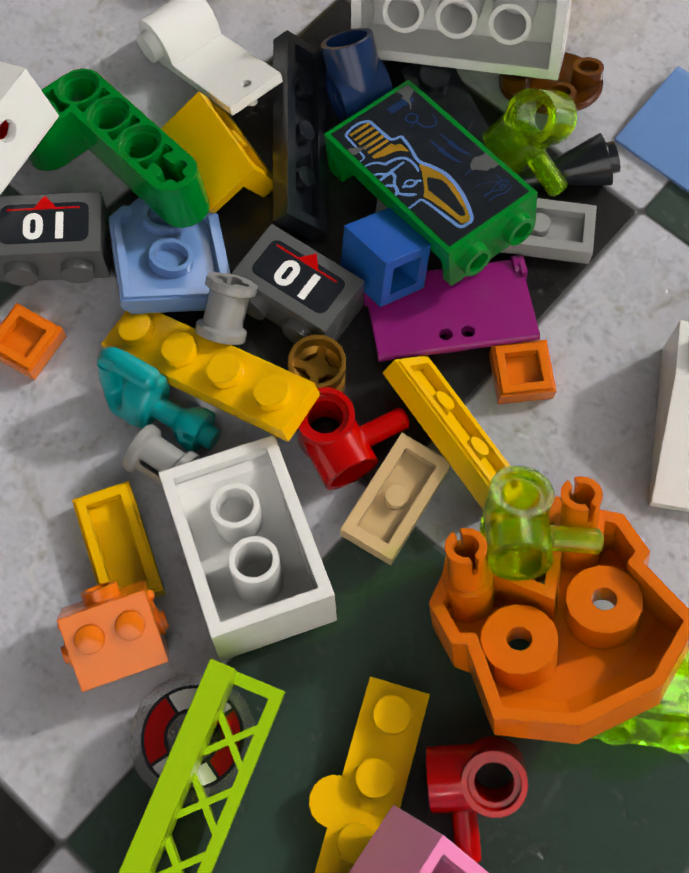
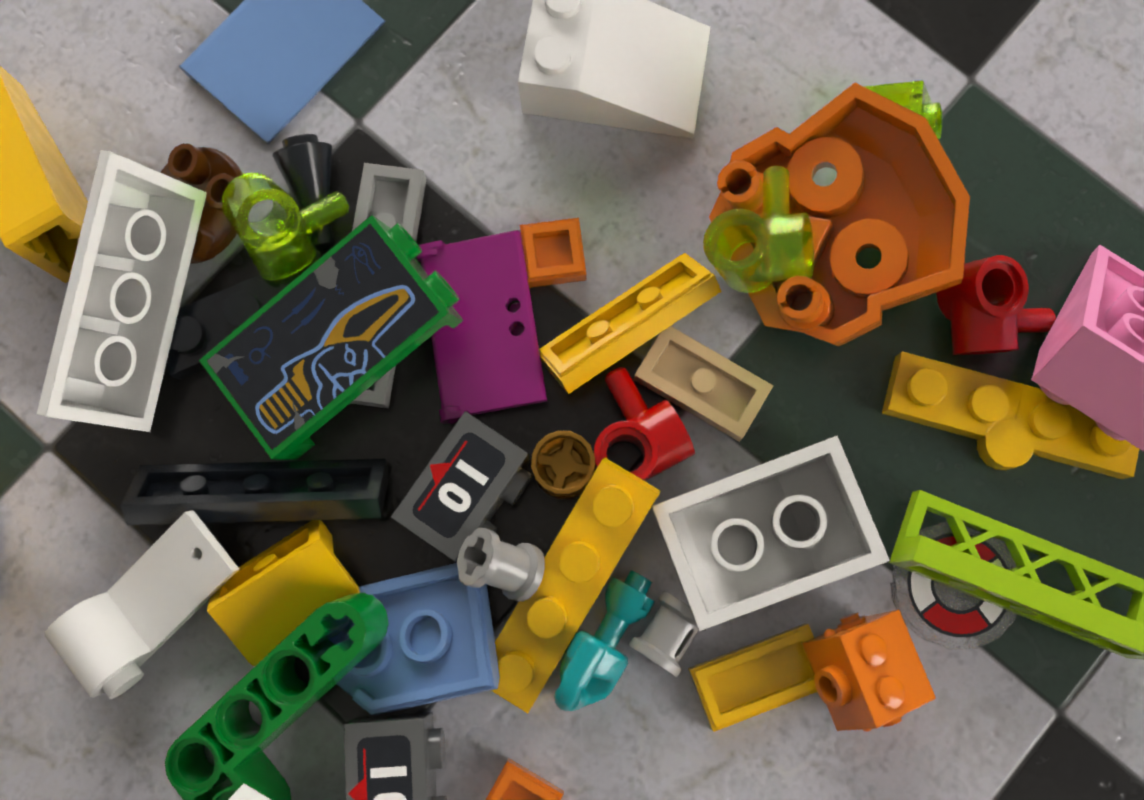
camera: 85 degrees left, 10 degrees up
(353, 71) = (183, 425): dark blue piece -> none
(385, 256) = (428, 390): blue brick -> none

